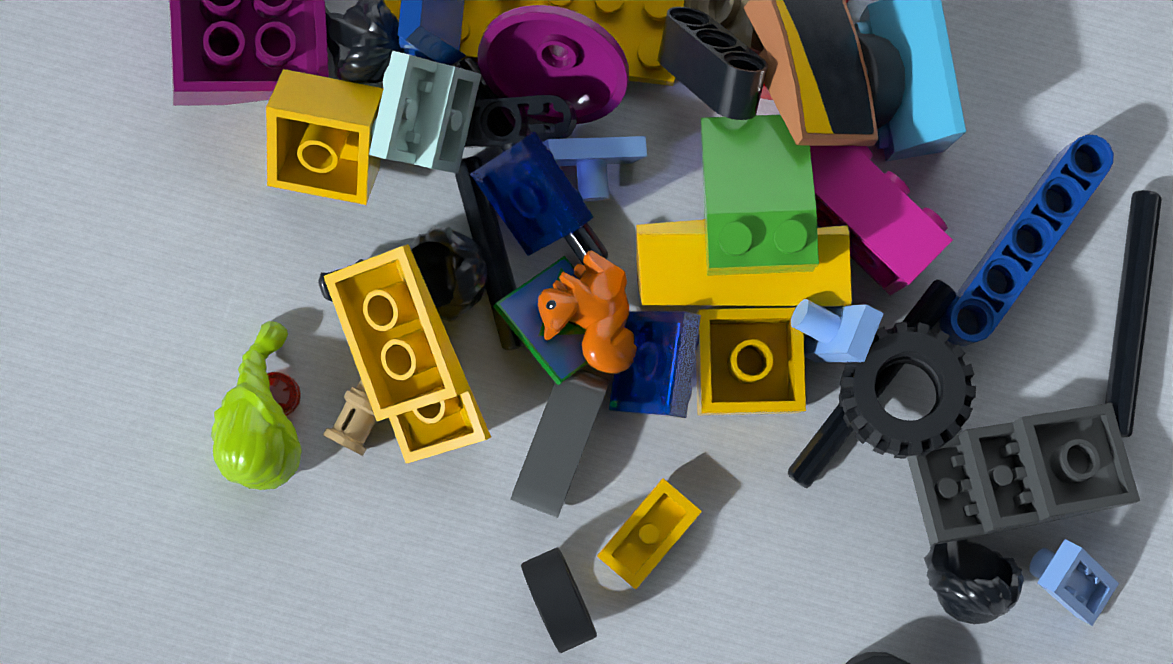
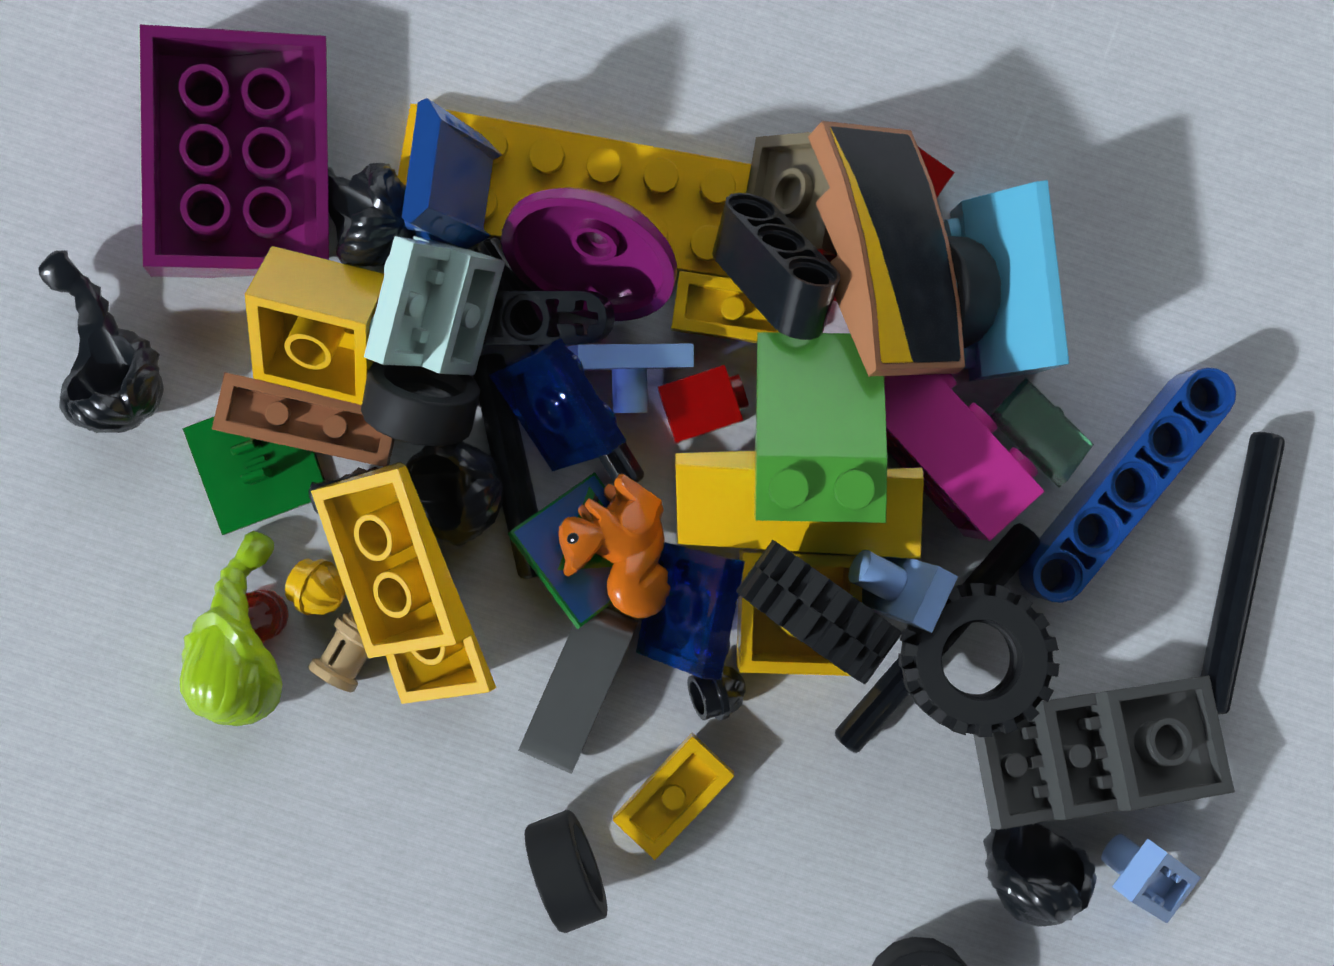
camera: 10 degrees right, 5 degrees up
(145, 188) = (116, 371): none -> black hair
(267, 261) = (249, 476): none -> green piece
(312, 220) = (298, 420): none -> nougat plate
(326, 365) = (315, 587): none -> yellow plate
(413, 196) = (420, 404): none -> black tyre
(655, 189) = (703, 403): none -> red brick
(664, 108) = (716, 309): none -> yellow plate
(681, 439) = (717, 697): none -> black plate
(767, 346) = (818, 612): none -> black tyre
(949, 196) = (1042, 432): none -> clear green piece

